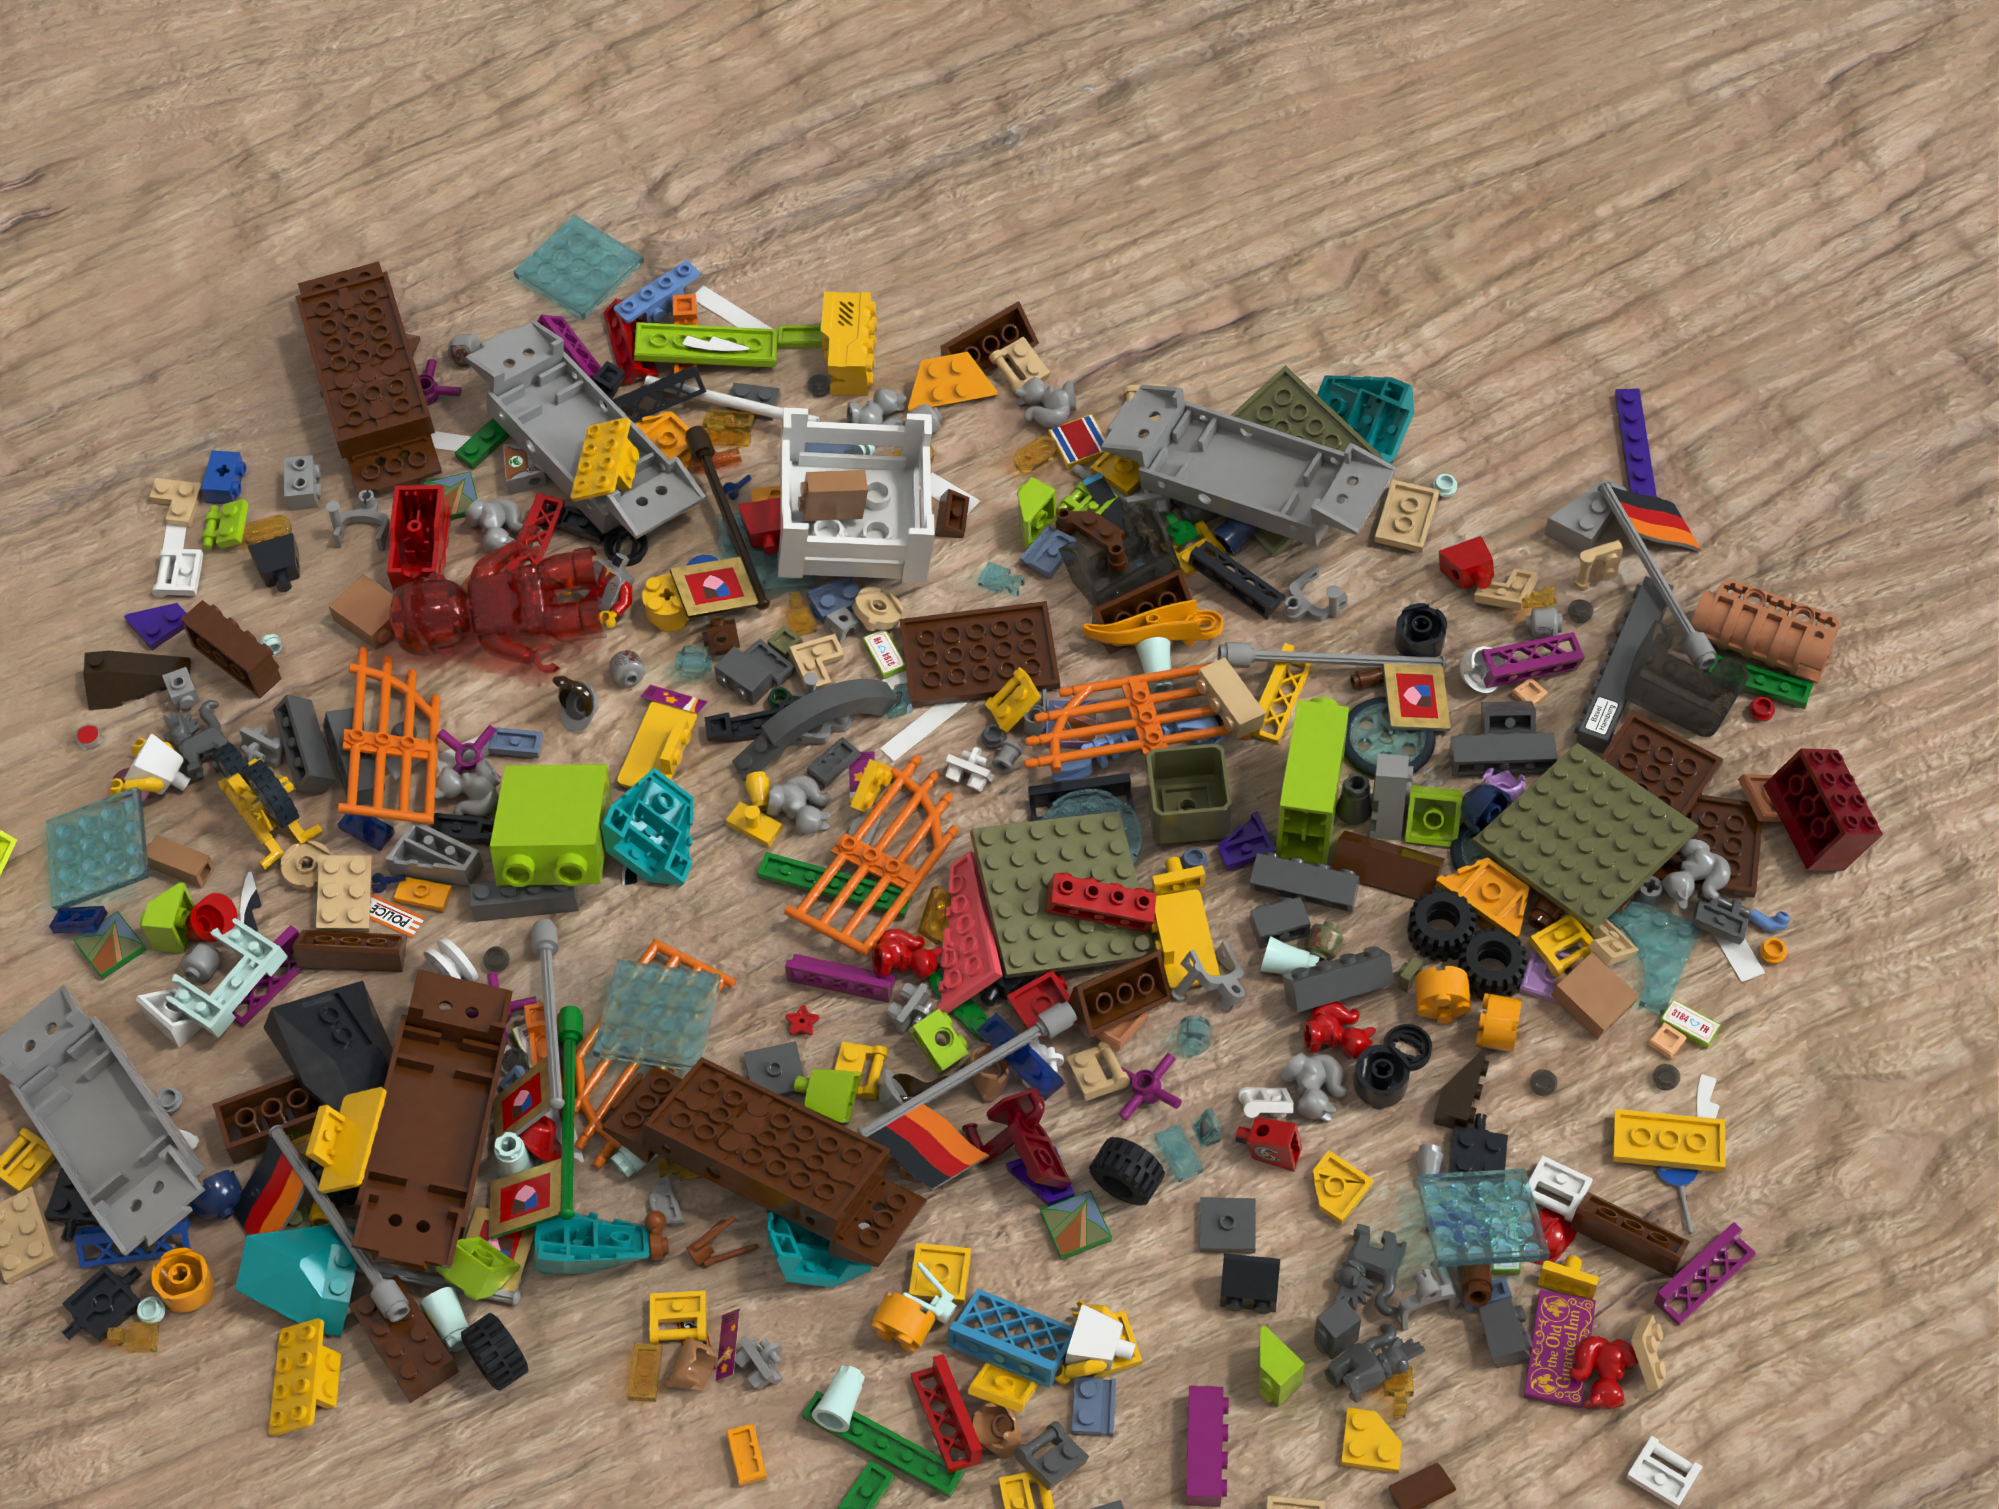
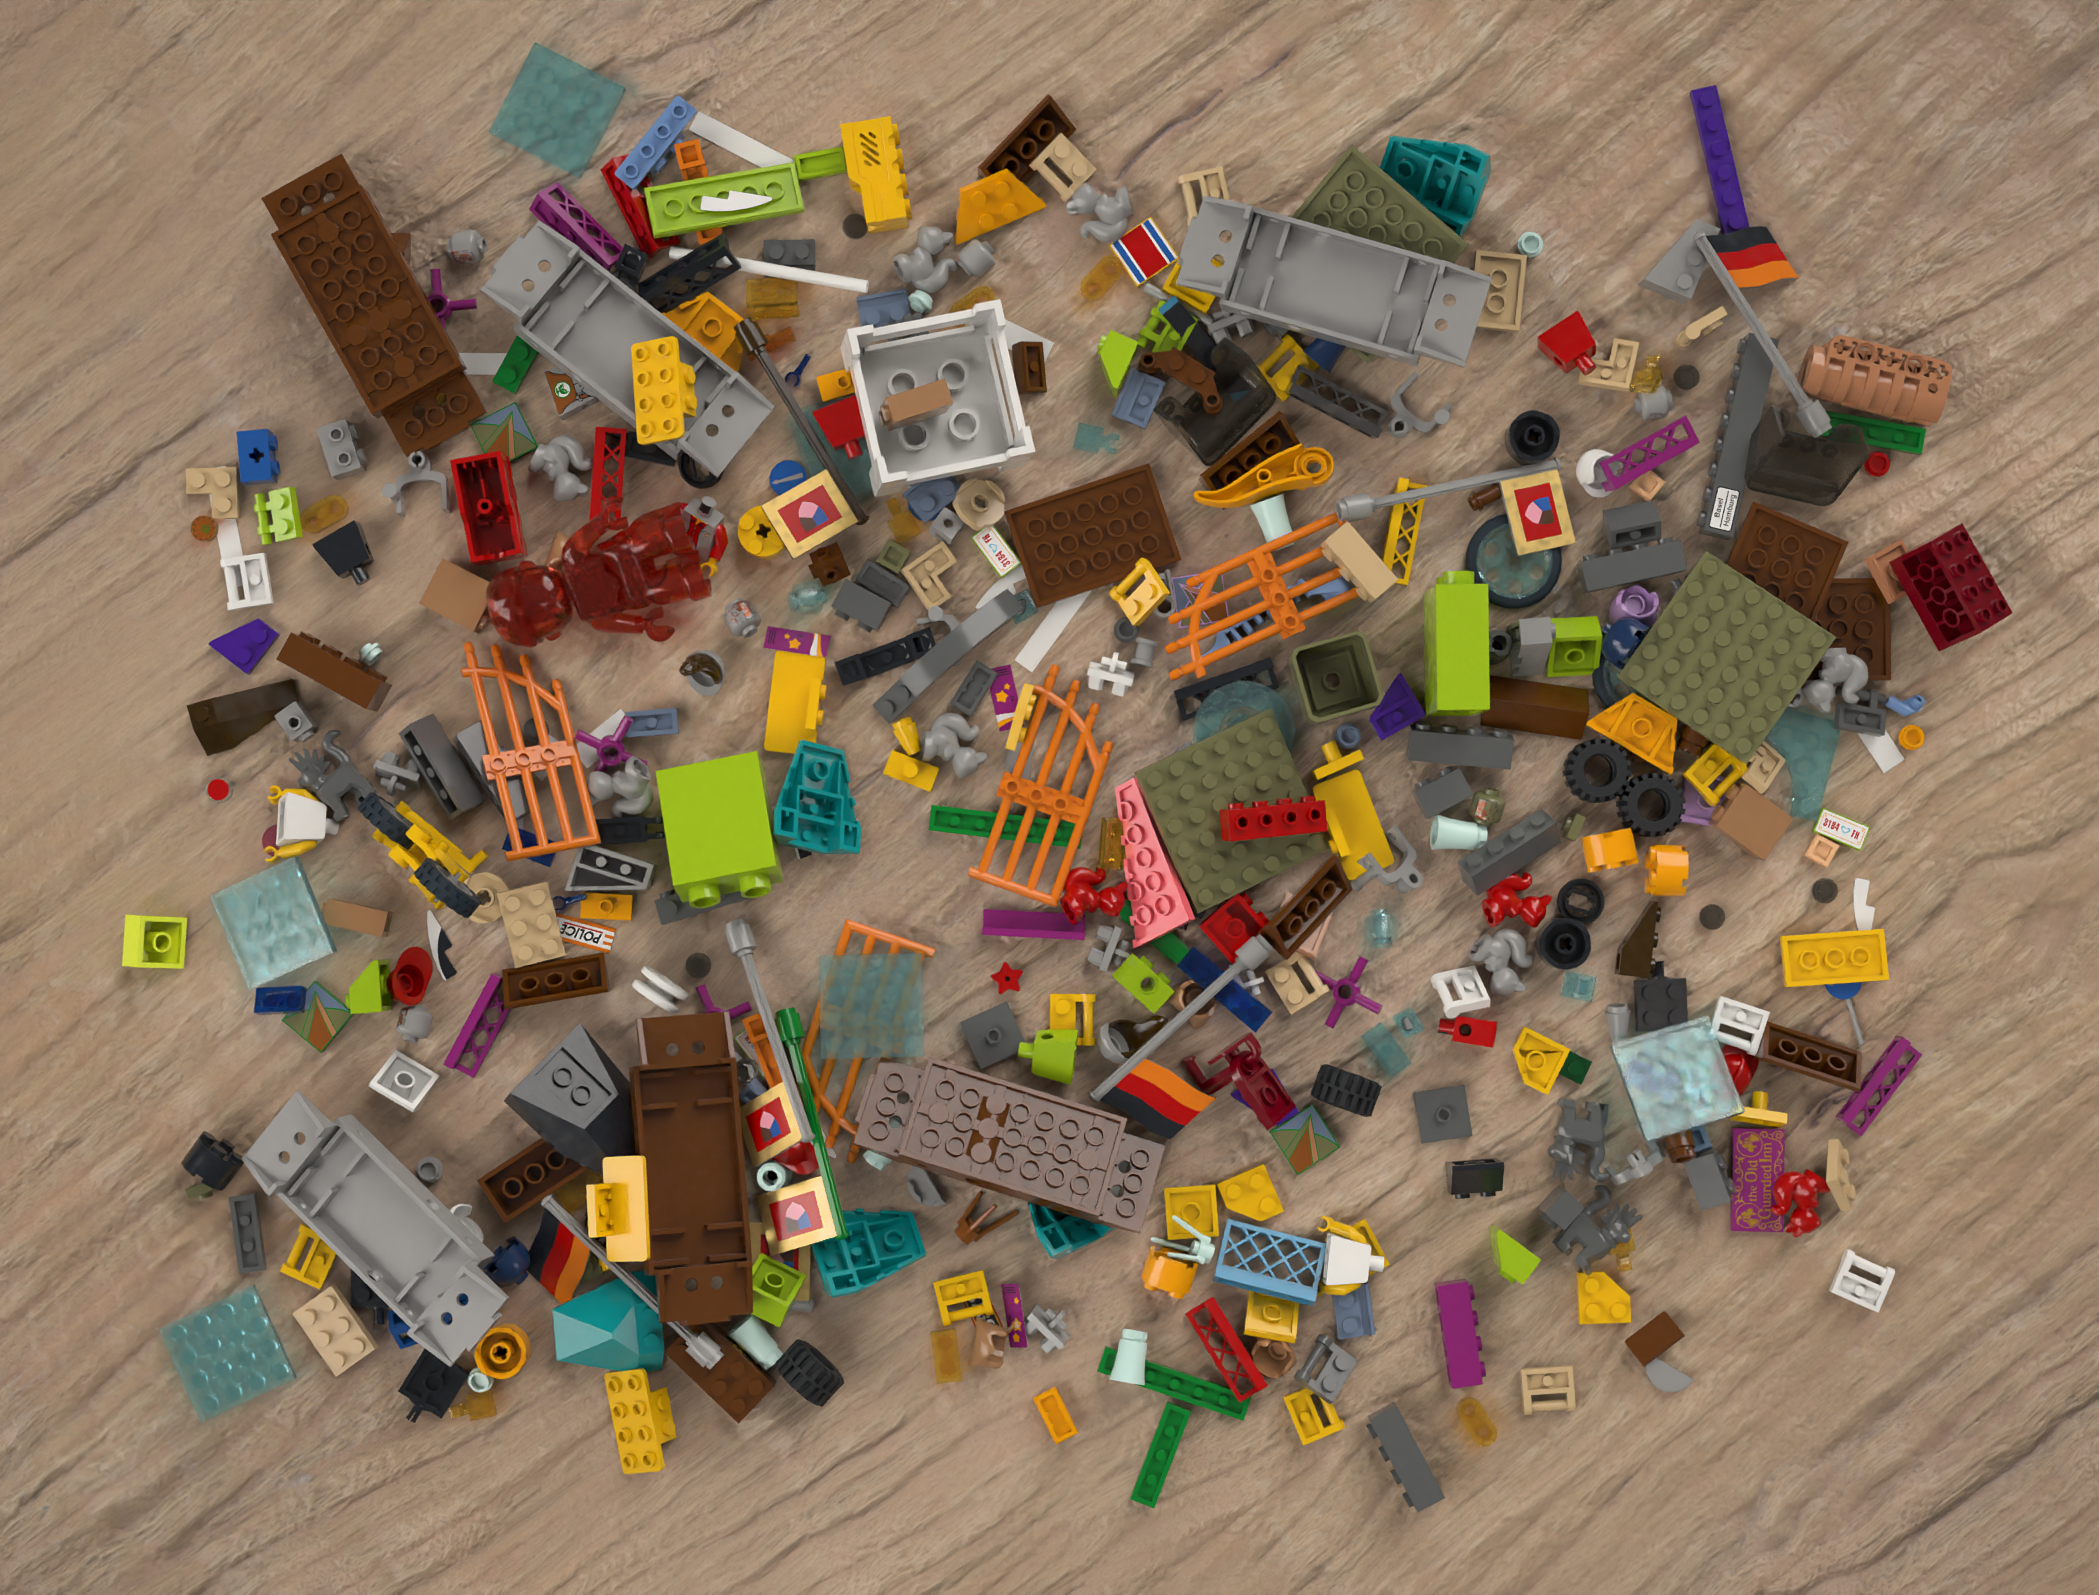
camera: 15 degrees left, 30 degrees up
(155, 528) = (204, 528): none -> clear orange tile
(215, 1011) = (449, 1079): light aqua wedge -> none
(655, 1222) = (920, 1212): dark orange plate -> none
(777, 694) = (903, 616): dark green plate -> none
(1008, 1269) = (1251, 1194): none -> yellow plate
(1179, 531) = (1269, 355): green plate -> none
(1376, 1203) = (1575, 1068): none -> dark green plate
(1393, 1126) = (1578, 986): none -> clear light blue slope

